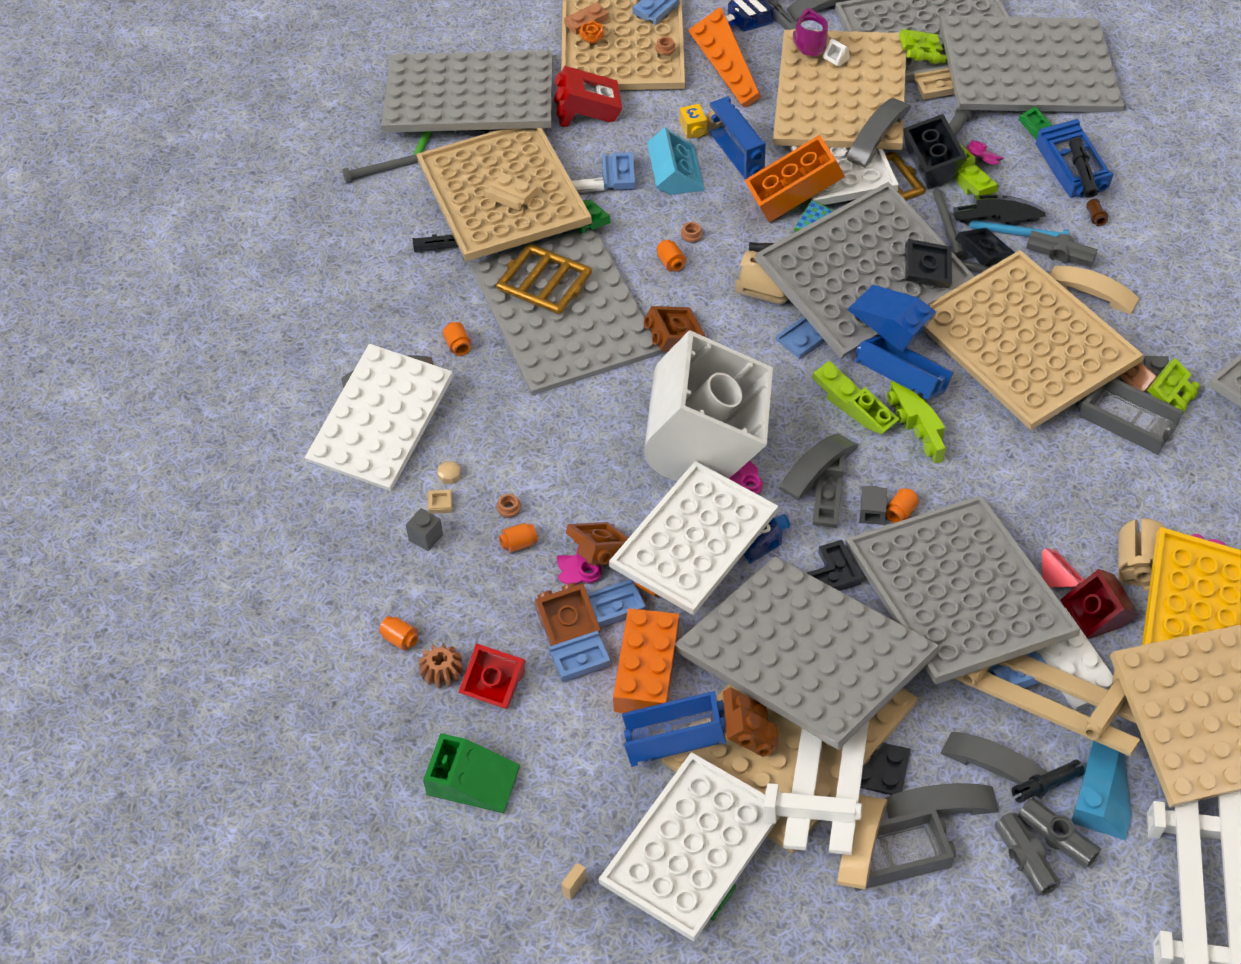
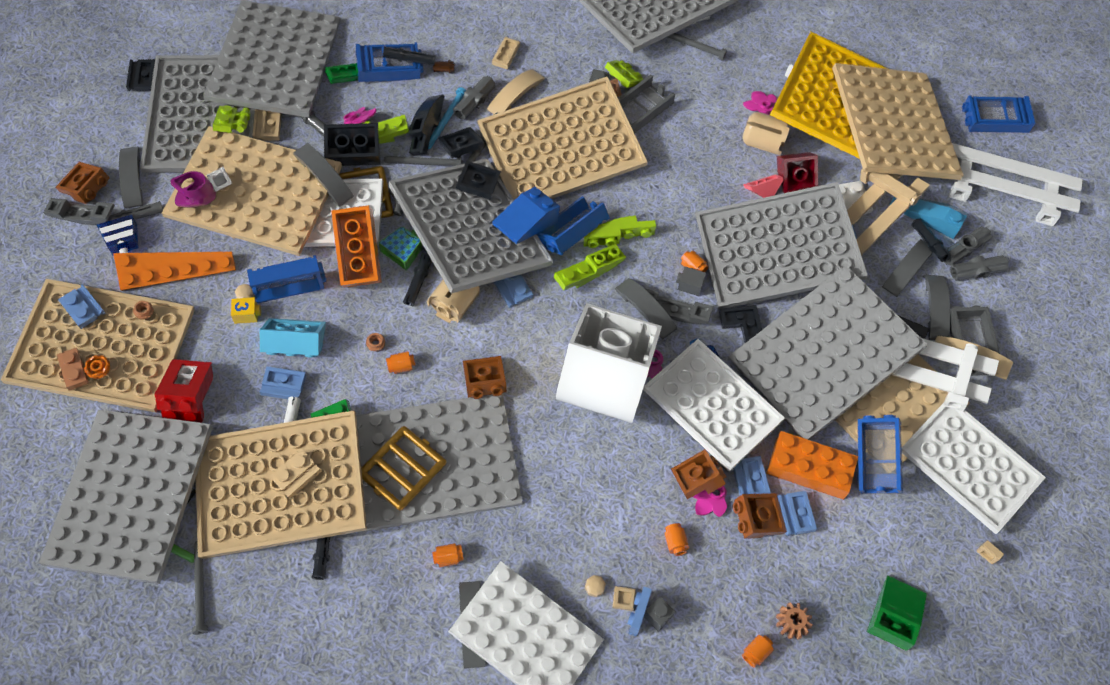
camera: 85 degrees left, 10 degrees up
(410, 503) = (635, 619): none -> medium blue plate
(492, 676) = (810, 580): red slope -> none
(508, 499) = (640, 536): nougat plate -> none
(749, 724) = (891, 401): dark orange plate -> none
(1149, 266) = (506, 53): none -> tan plate

